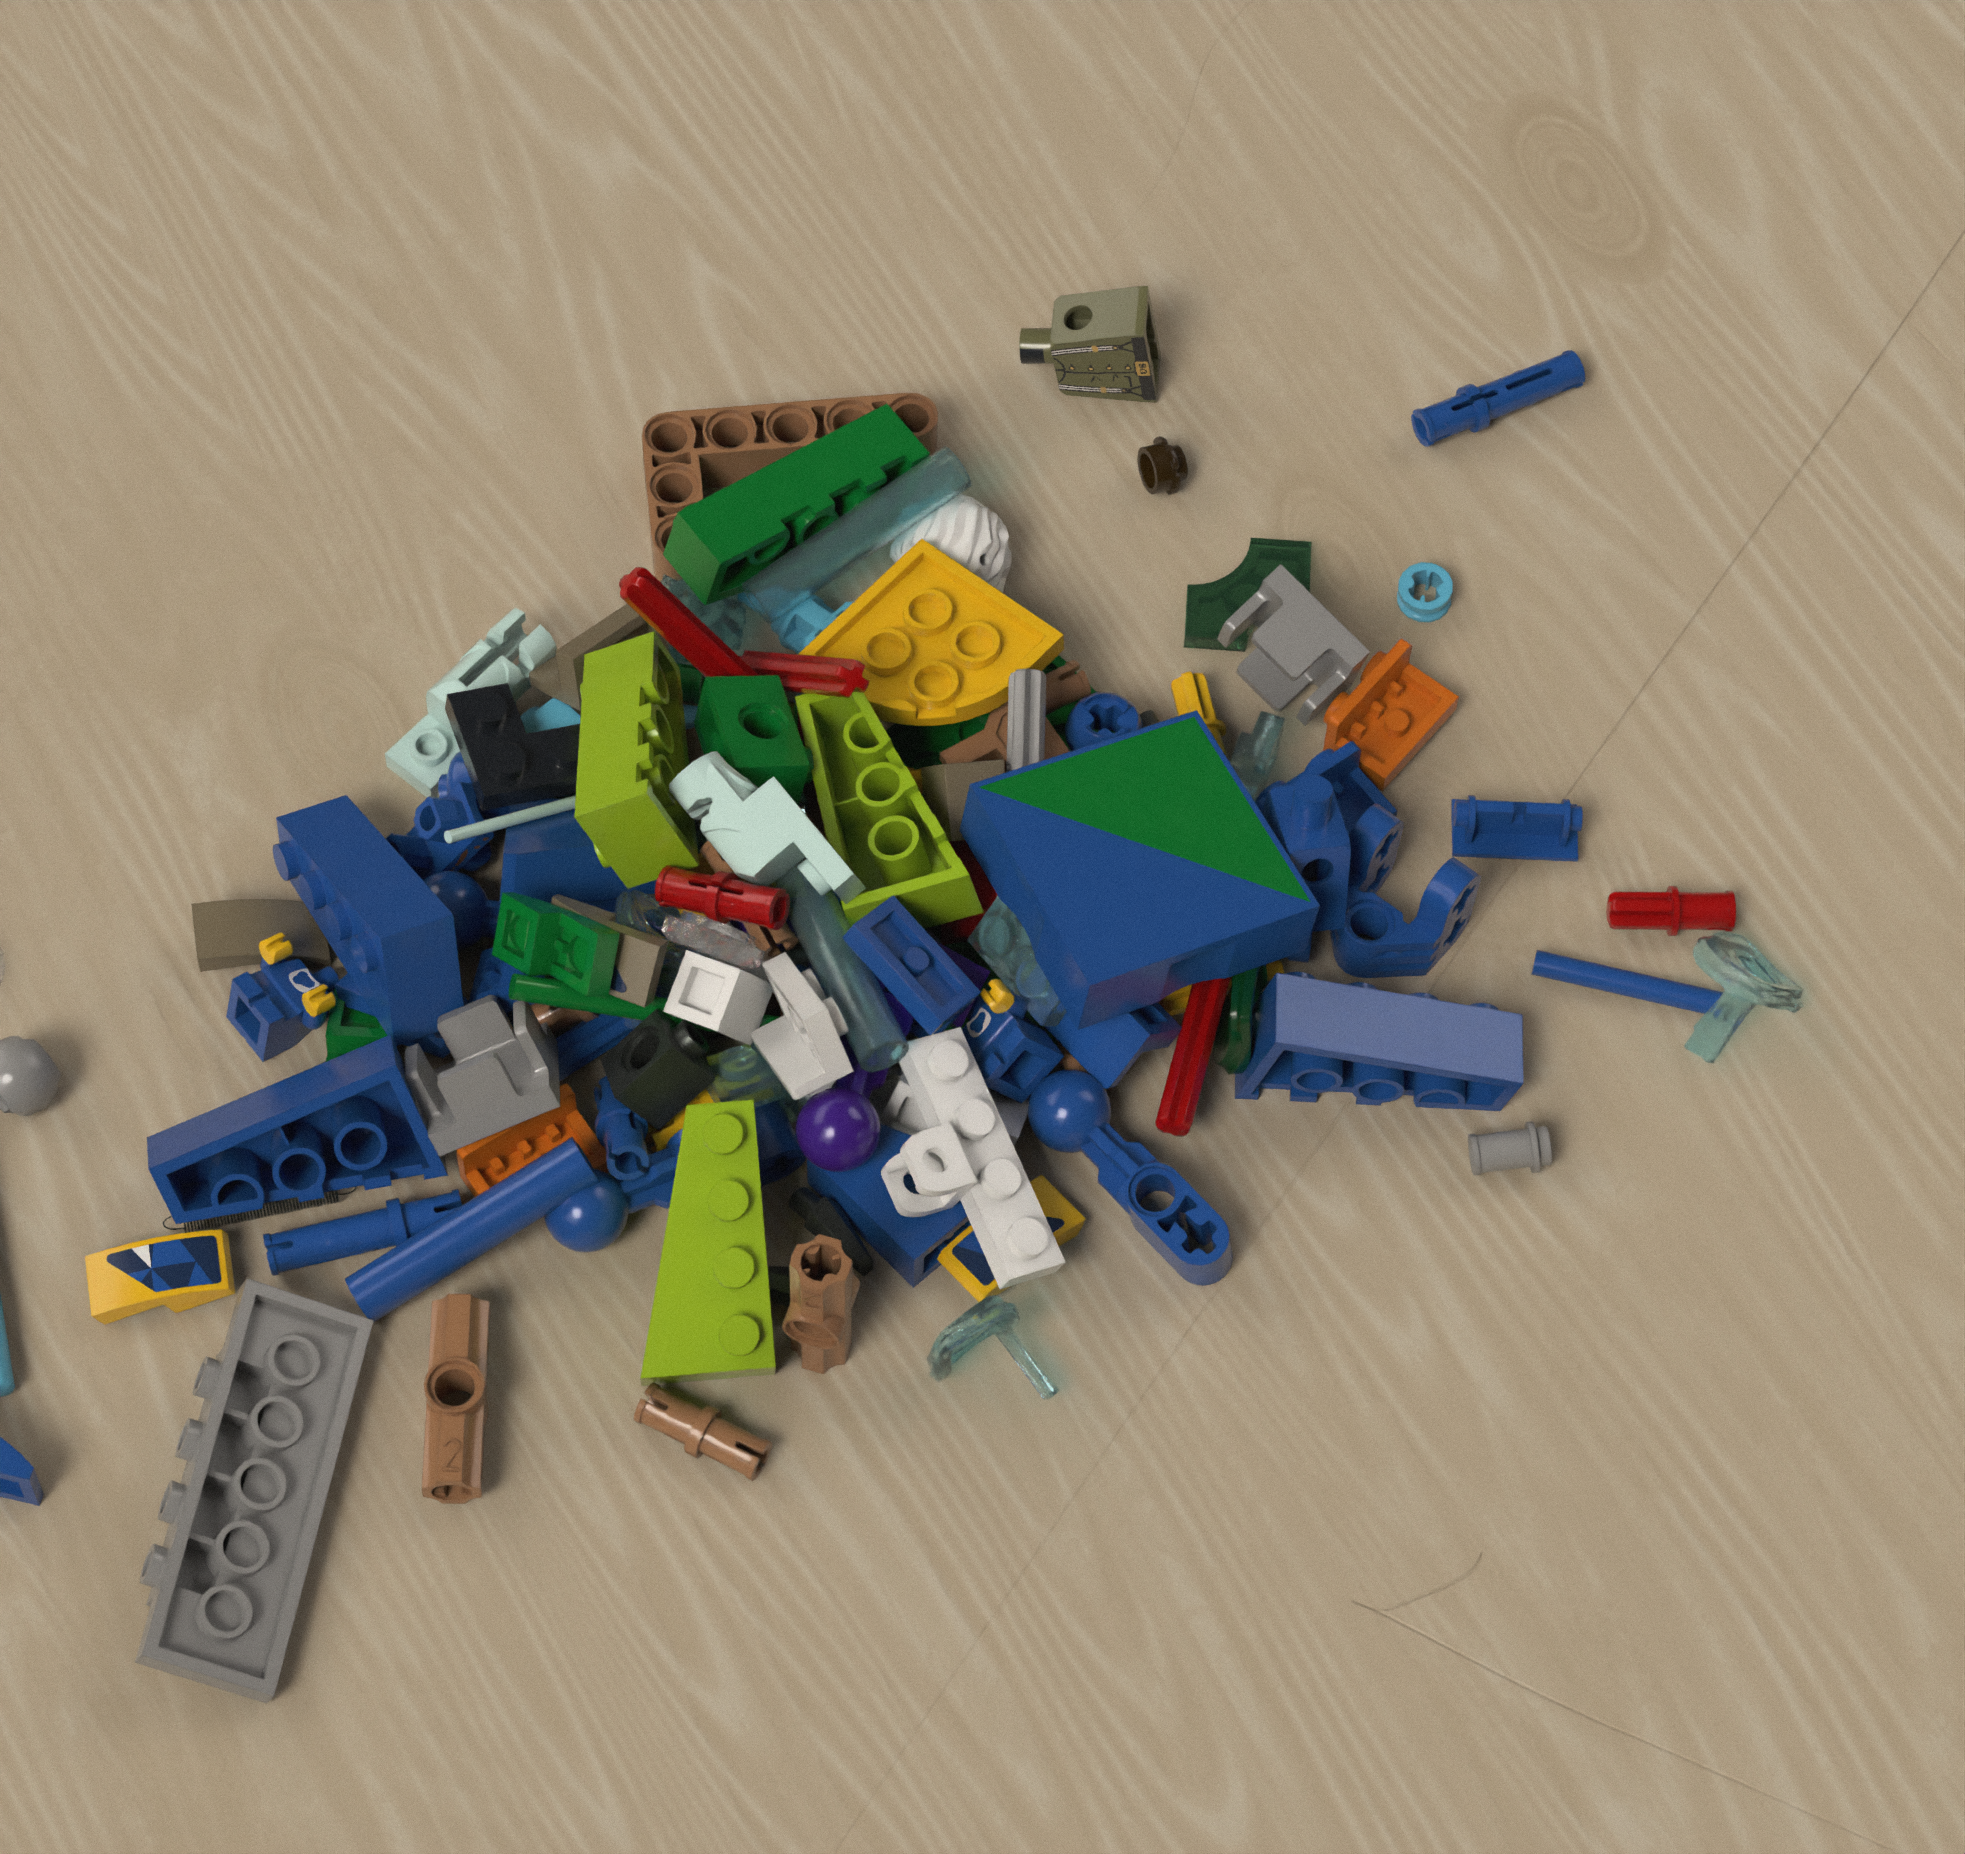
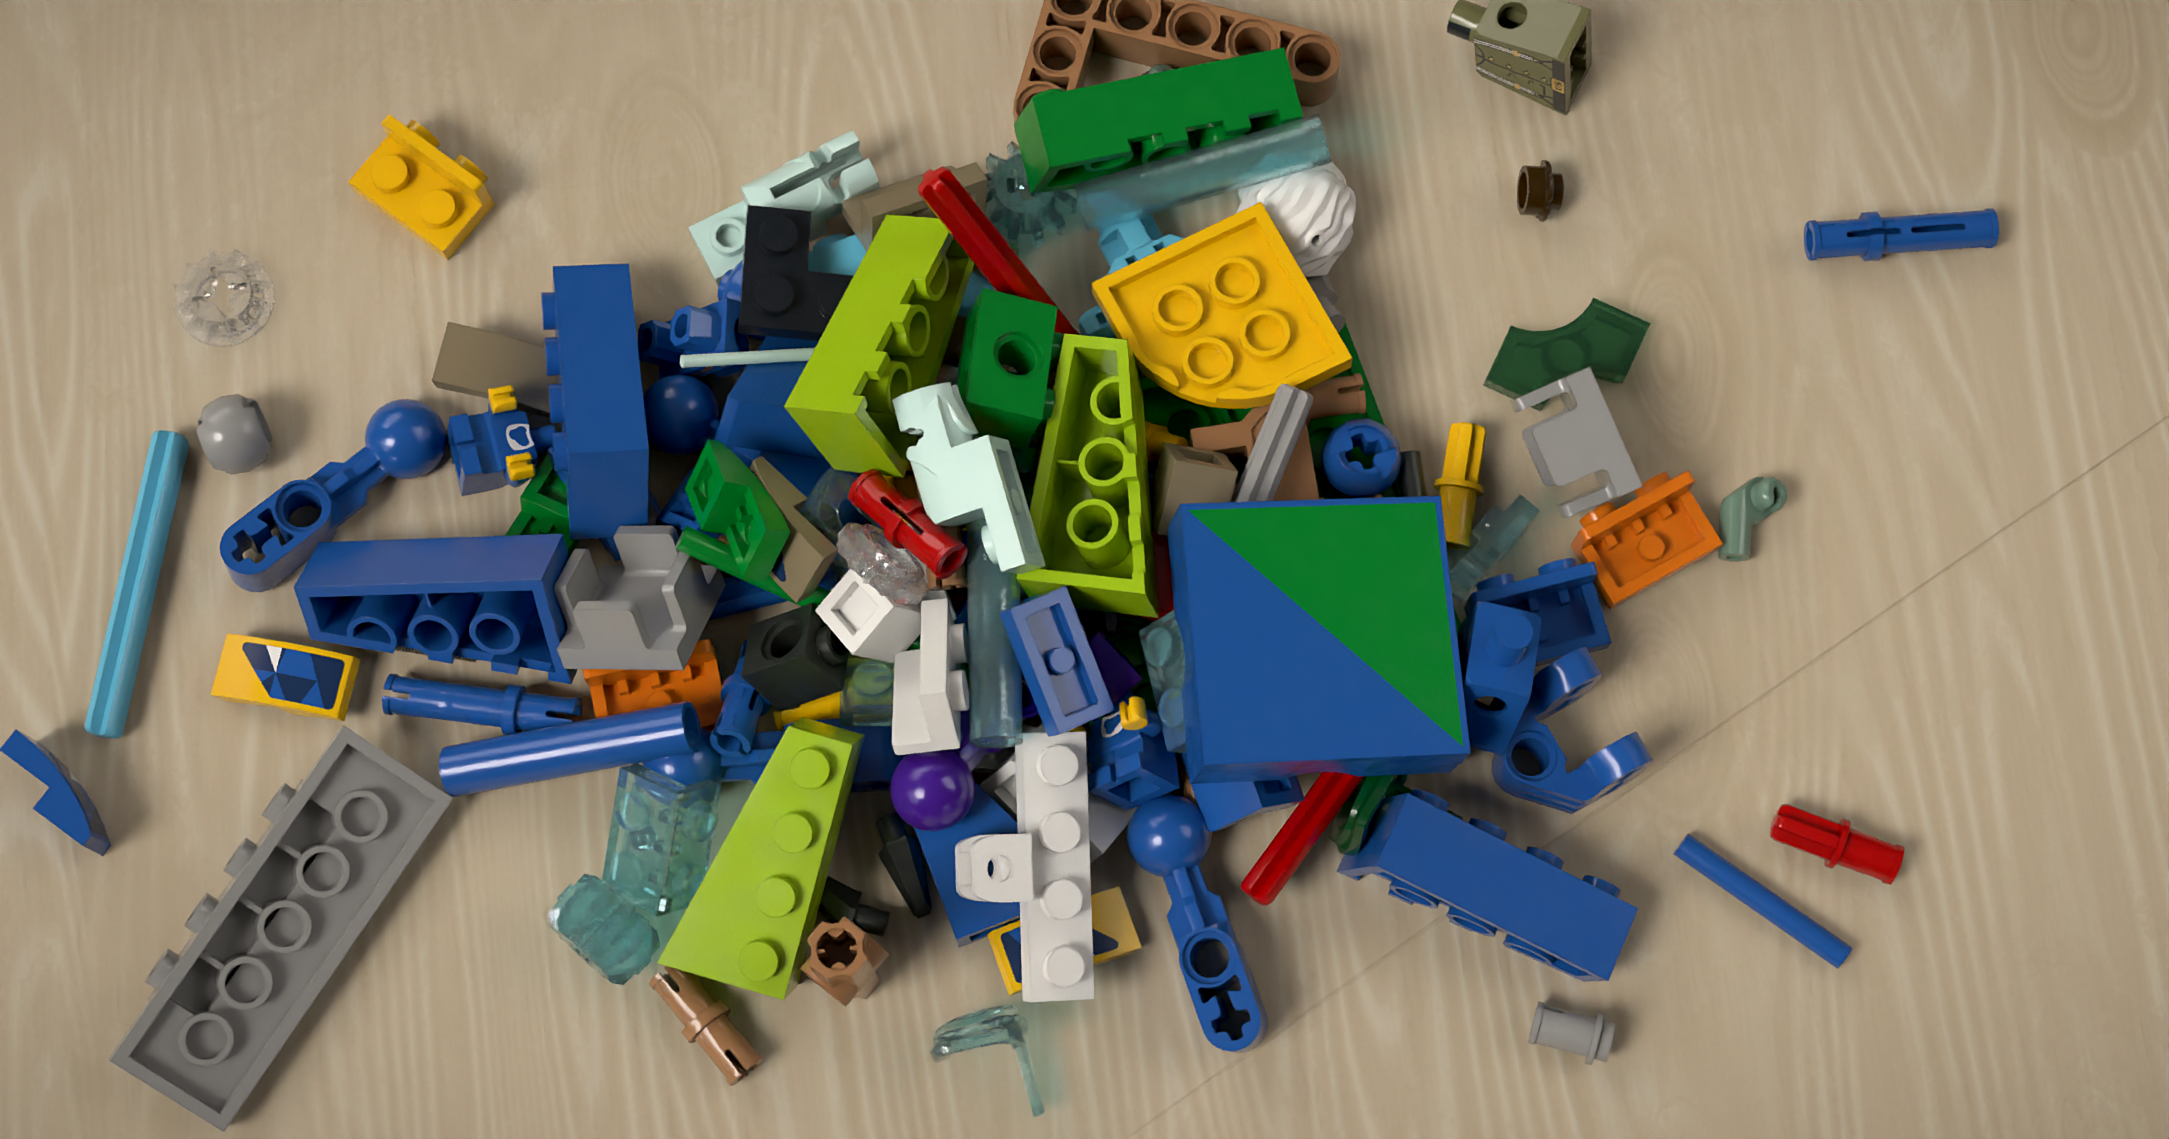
camera: 25 degrees right, 15 degrees up
(110, 802) = (423, 187): none -> yellow bracket
(184, 1032) = (400, 442): none -> blue beam
(456, 1433) = (479, 946): medium nougat piece -> none
(573, 1374) = (604, 929): none -> clear light blue gear
(592, 1279) = (659, 839): none -> clear light blue bracket
(810, 673) = (1079, 310): red axle -> none
(1430, 575) = (1756, 425): medium azure bush -> none
(1465, 667) = (1745, 509): none -> sand green arm
(1515, 829) = (1721, 699): blue hinge -> none
(1744, 985) = (1866, 964): clear light blue piece -> none

